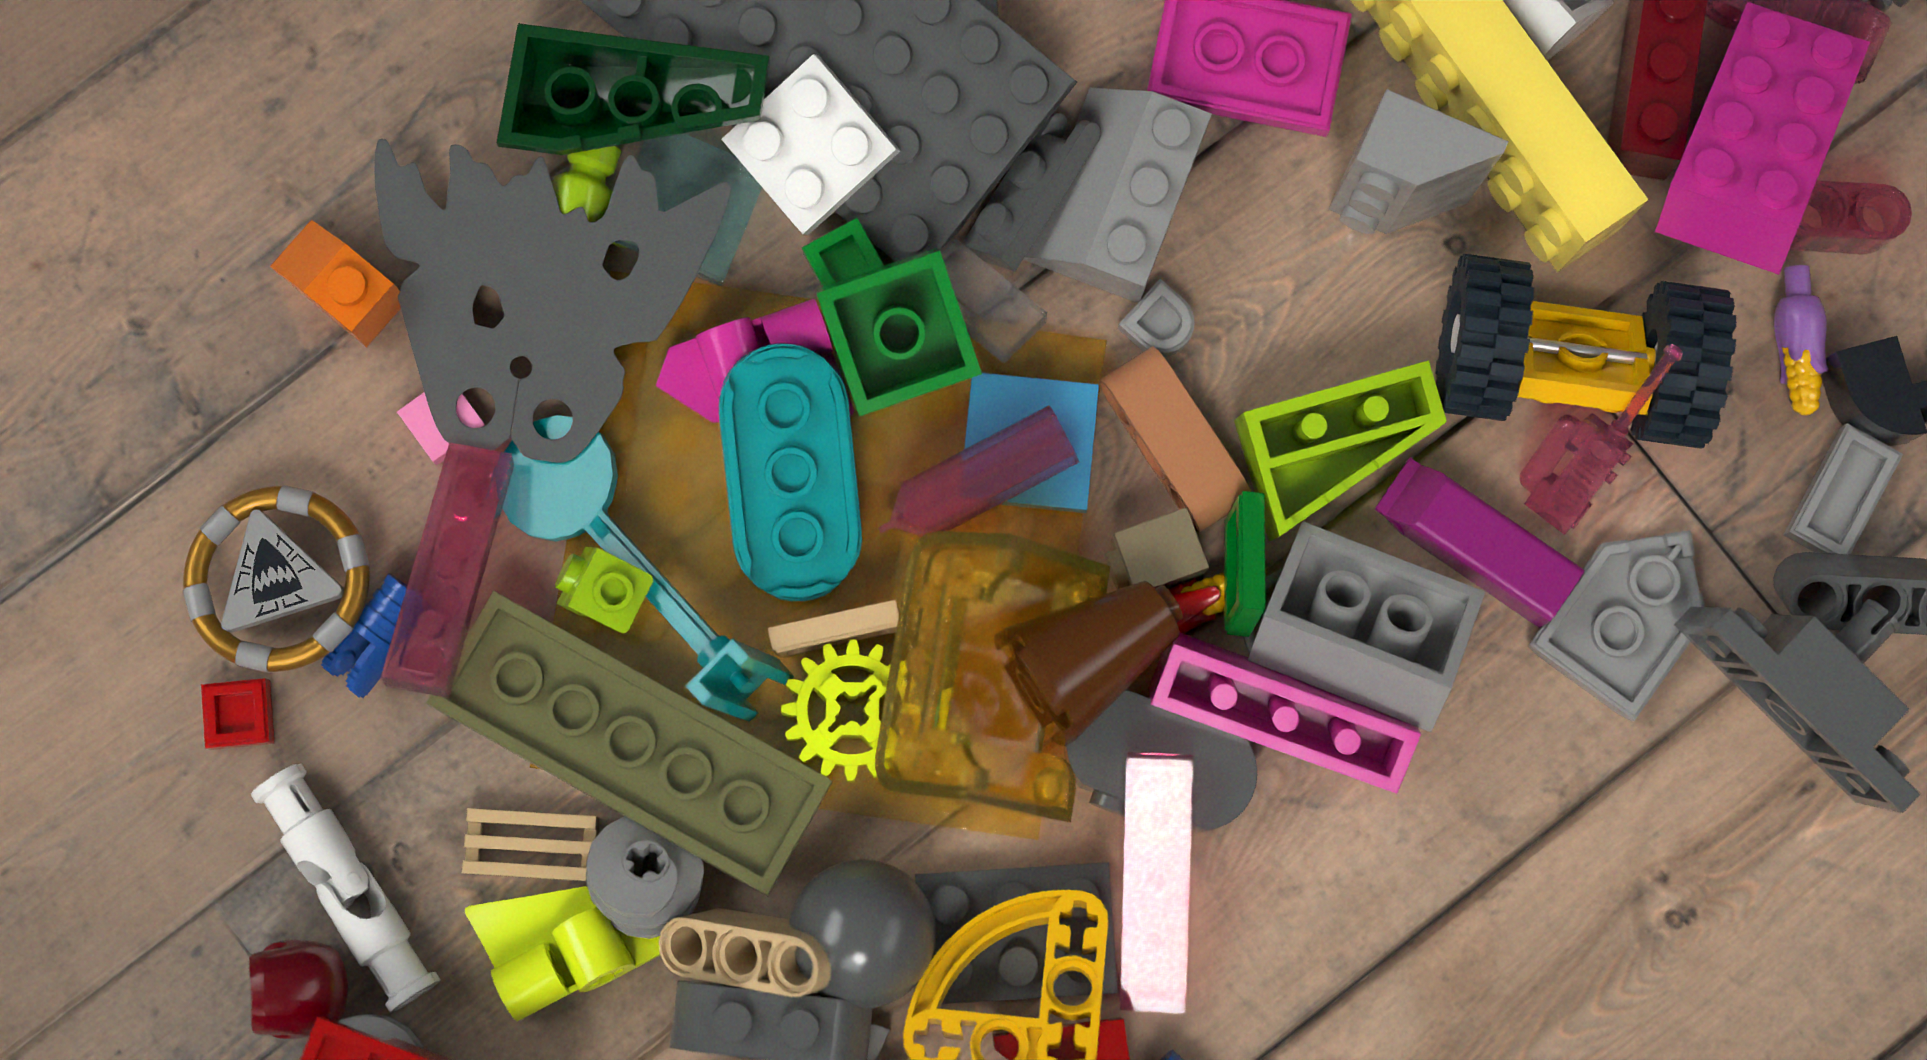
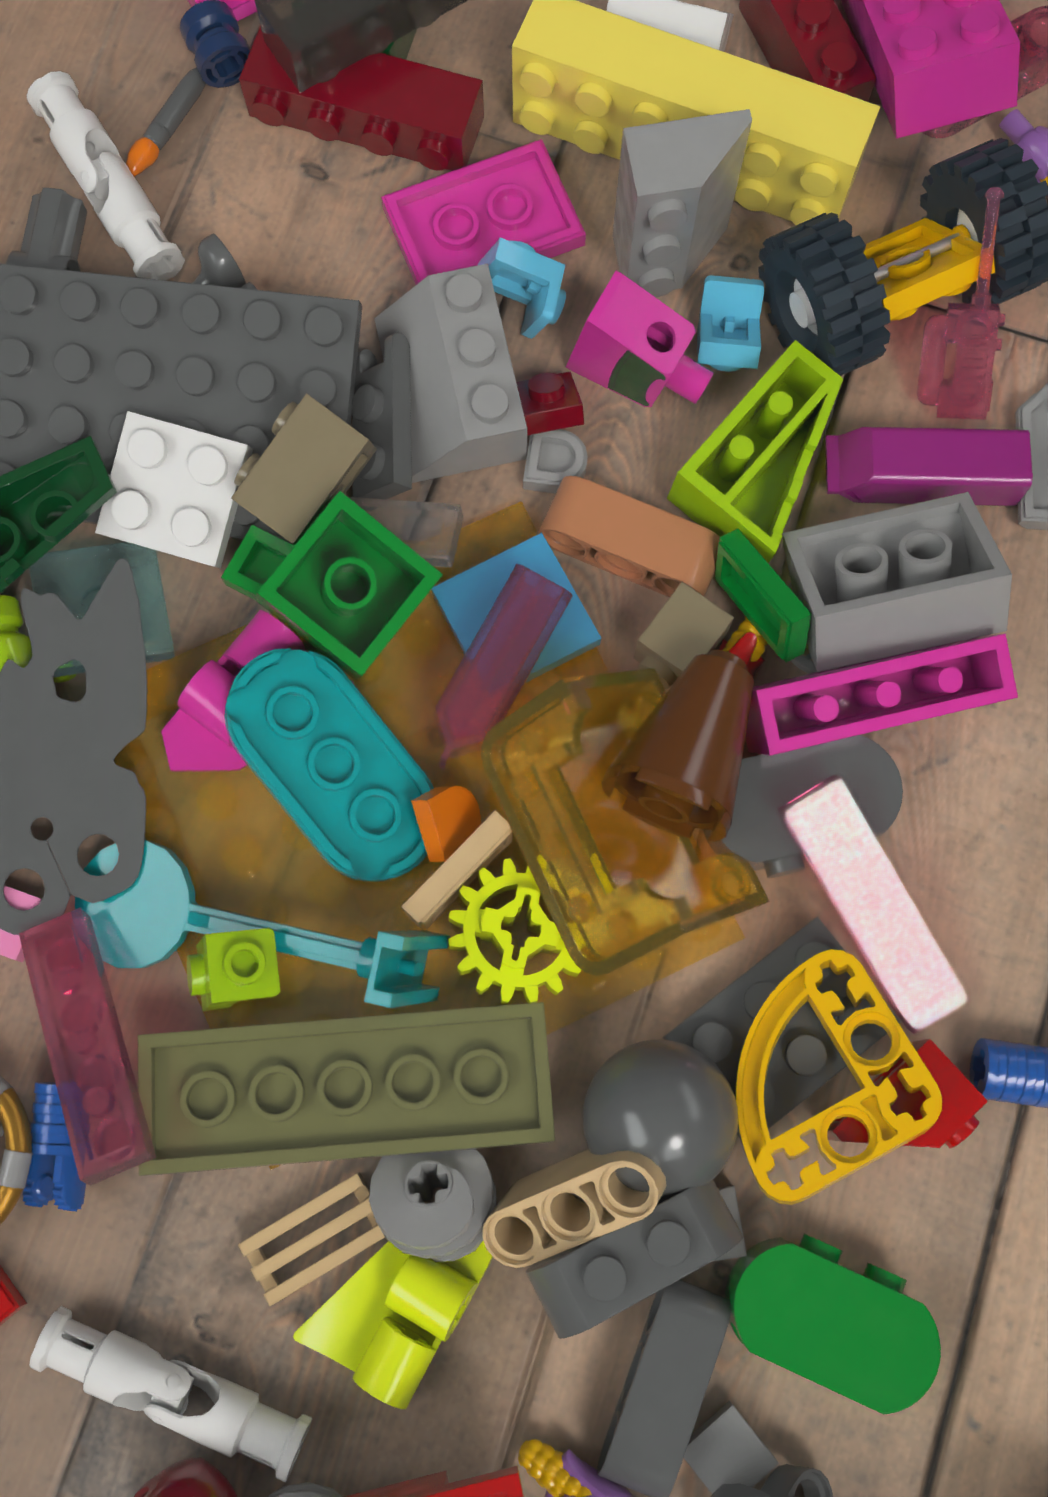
camera: 30 degrees left, 5 degrees down
(853, 579) = (446, 819): none -> orange tile
(926, 203) = (301, 468): none -> dark tan brick
(1187, 268) = (550, 402): none -> dark red plate
(1241, 133) = (528, 279): none -> medium azure bracket
(1293, 248) = (637, 346): none -> dark pink torso
(1395, 301) = (730, 323): none -> medium azure bracket

